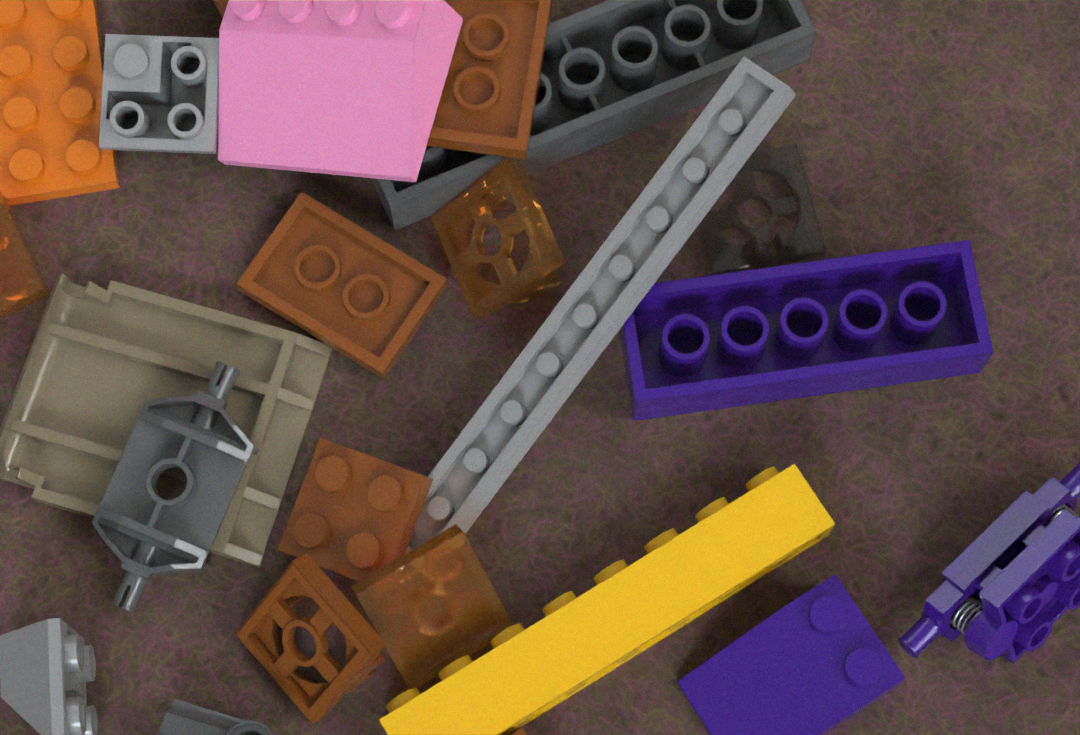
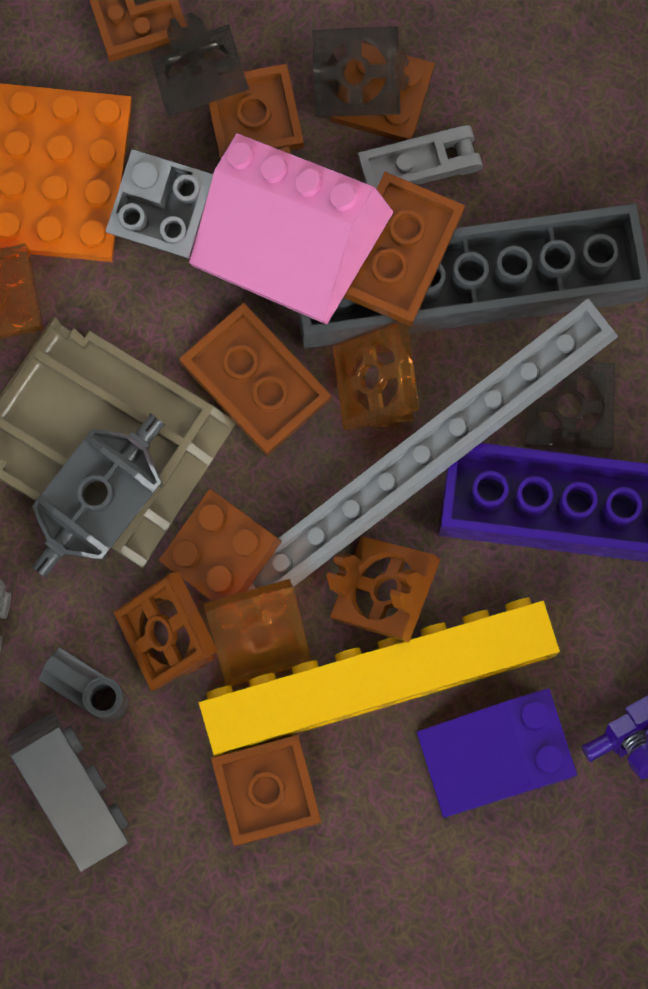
camera: 10 degrees right, 5 degrees up
(617, 504) = (408, 598): none -> dark orange piece

